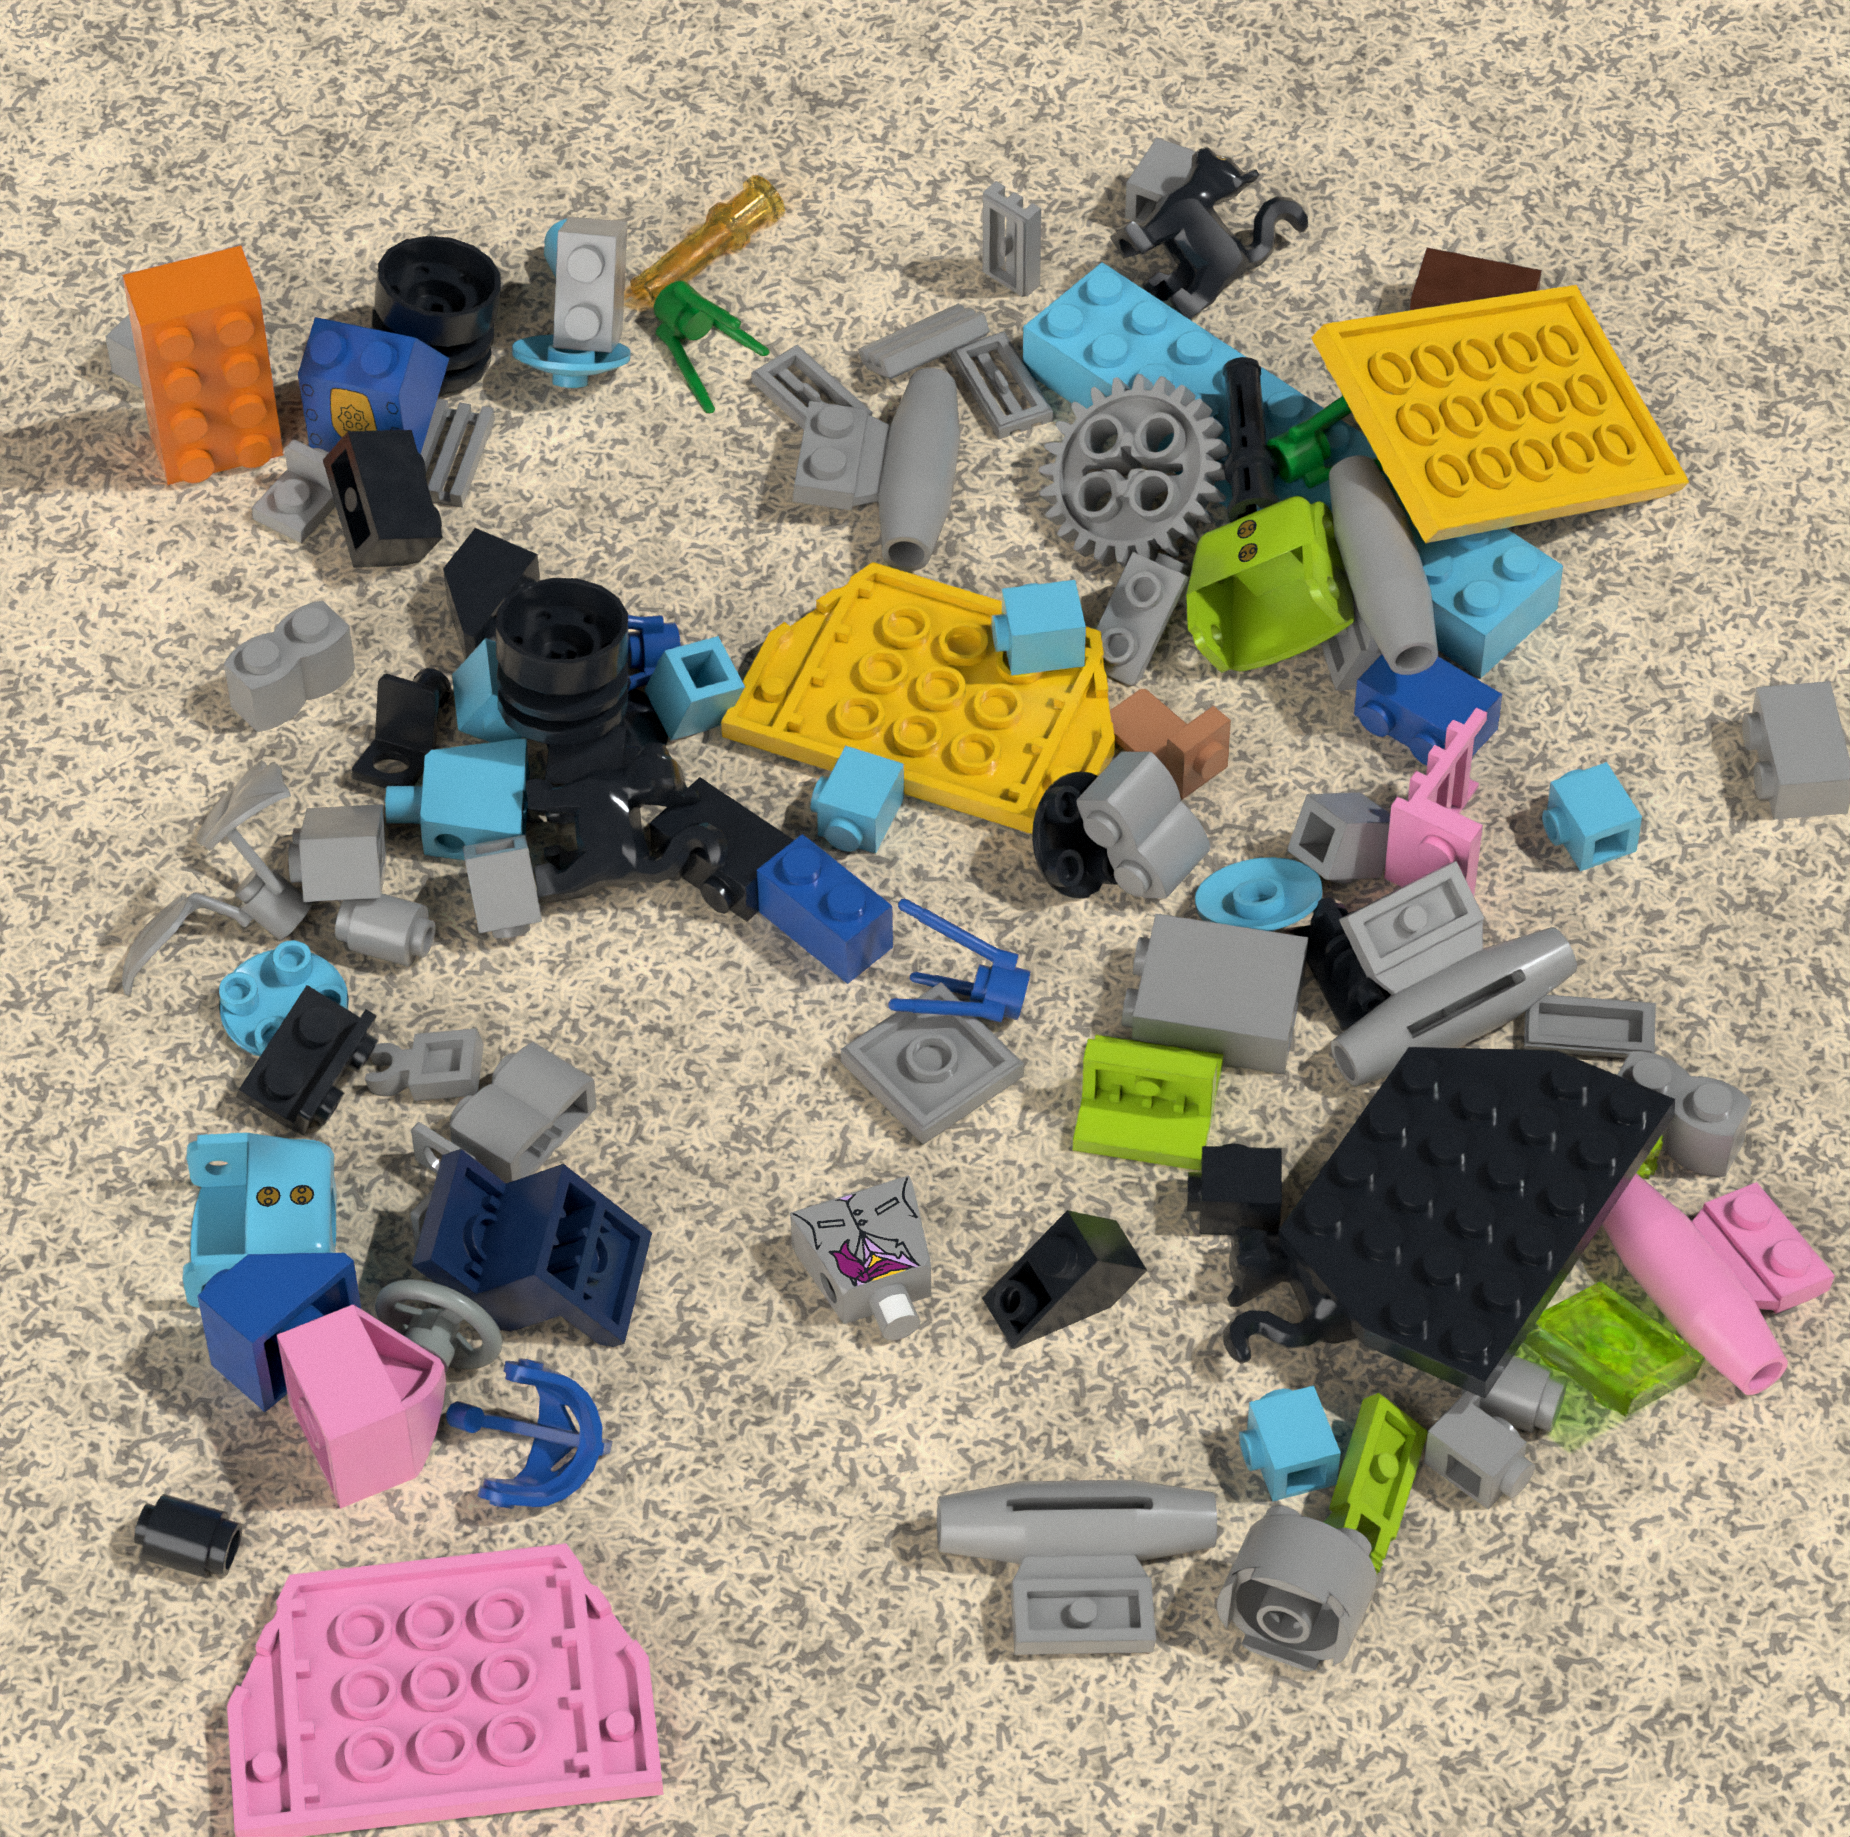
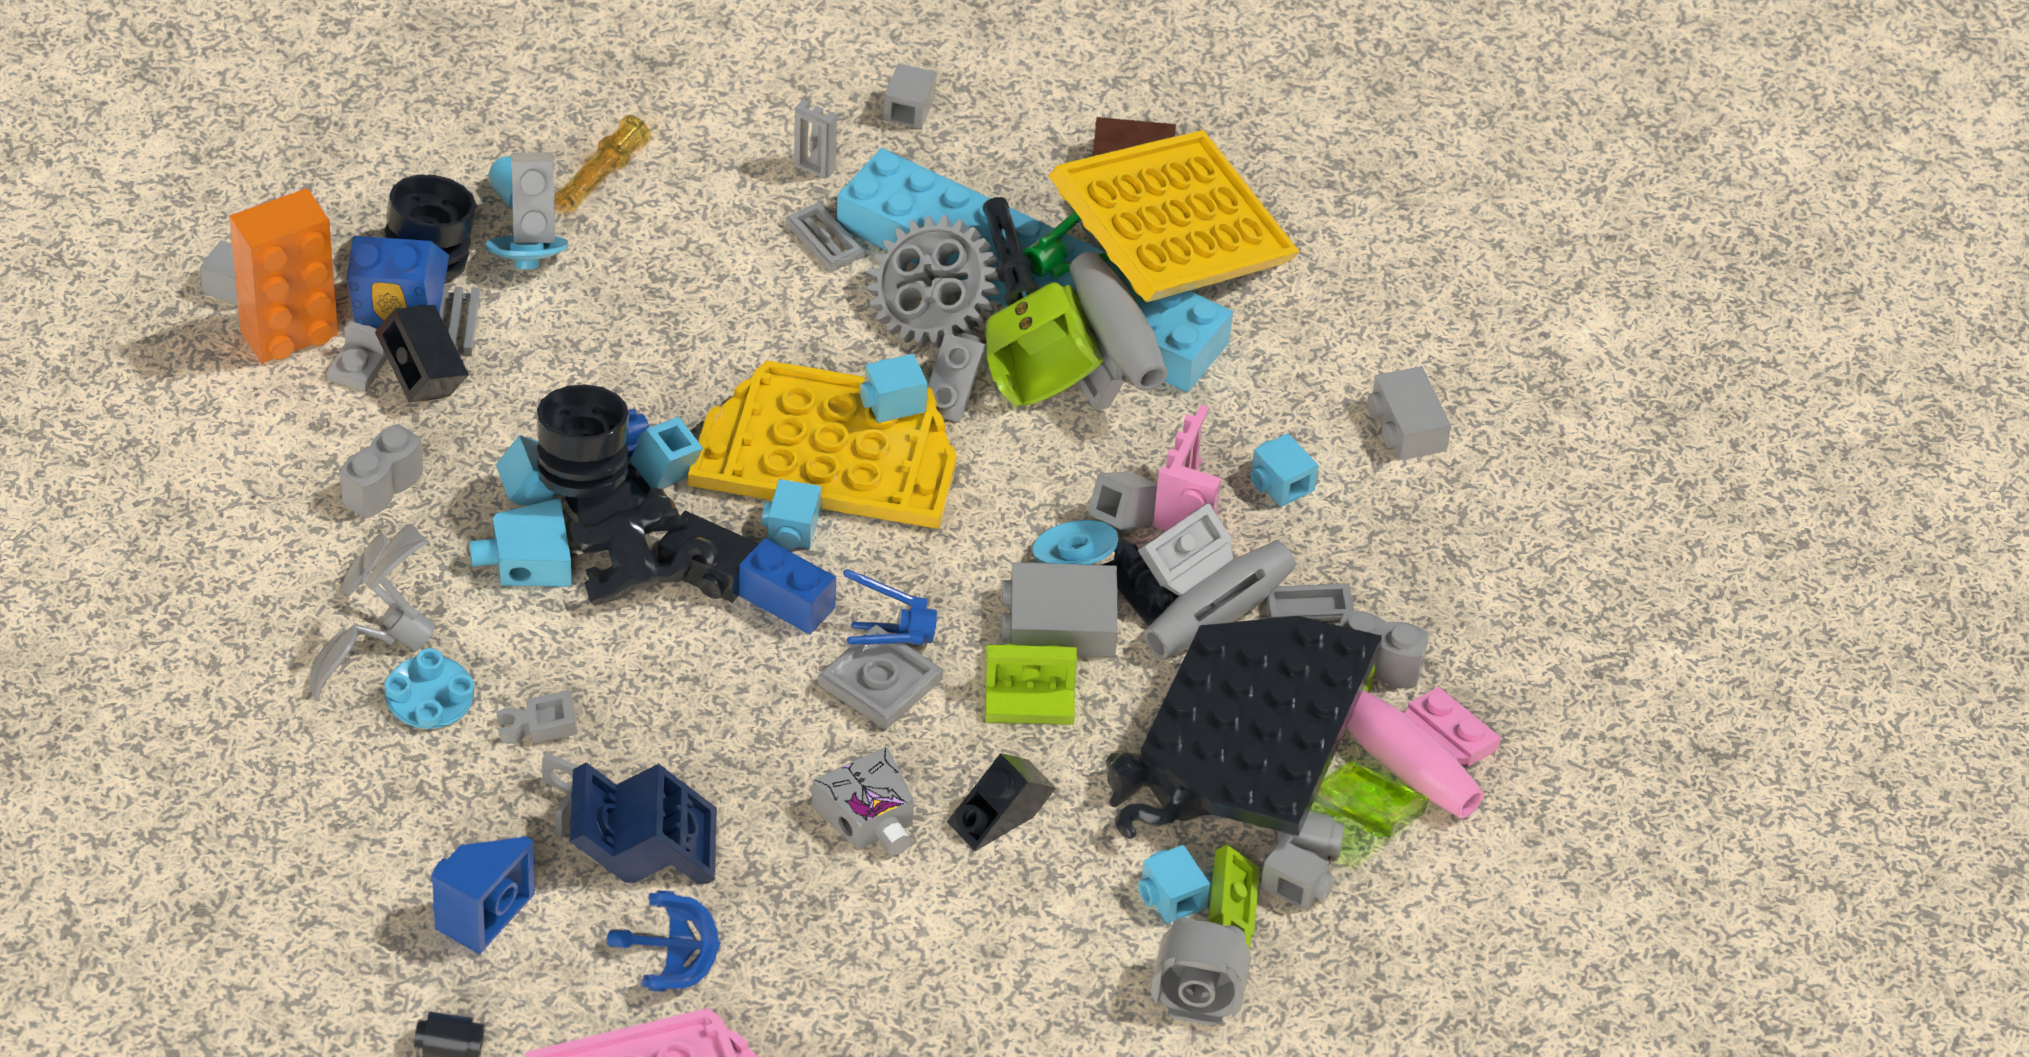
camera: 15 degrees left, 5 degrees down
(266, 1200) = (447, 814): medium azure piece -> none
(306, 1060) = (457, 724): black bracket -> none
(339, 853) = (450, 586): light grey brick -> none
(377, 1386) = (557, 929): bright pink piece -> none
(386, 928) = (489, 633): light grey brick -> none
(403, 727) = (469, 503): black bracket -> none
(480, 580) = (506, 406): black slope -> none
(502, 886) = (565, 596): light grey brick -> none
(523, 1113) = (614, 737): light grey brick -> none
(691, 316) = (602, 212): green plant -> none
(785, 400) = (692, 262): light grey tile -> none
(903, 465) = (773, 294): light grey plate -> none
(924, 341) = (766, 213): light grey tile -> none
(1060, 844) = (950, 518): black dish -> none
(1078, 1554) = (1050, 971): light grey plate -> none
(1143, 825) = (991, 507): light grey brick -> none
(1188, 751) = (997, 461): nougat bracket -> none
(1197, 238) = (939, 126): black animal -> none
(1236, 1189) = (1102, 730): black brick -> none
(1423, 704) = (1156, 412): blue brick -> none

